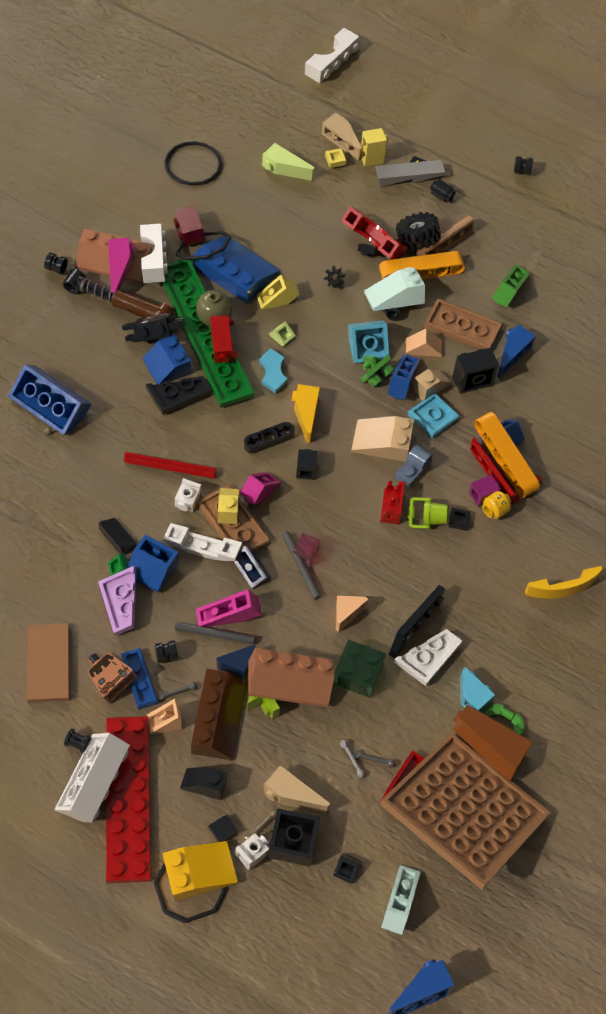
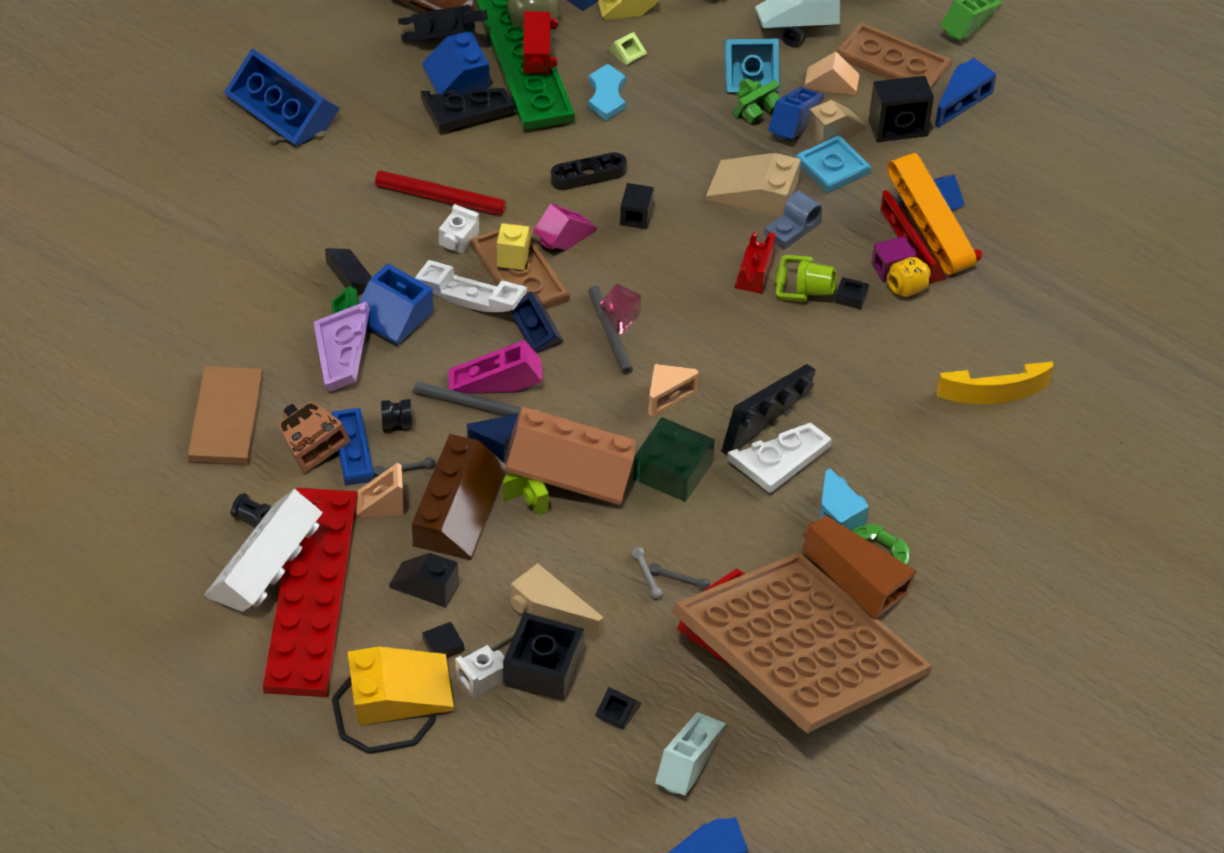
camera: 10 degrees right, 10 degrees down
(305, 407) = (648, 134): yellow slope -> none

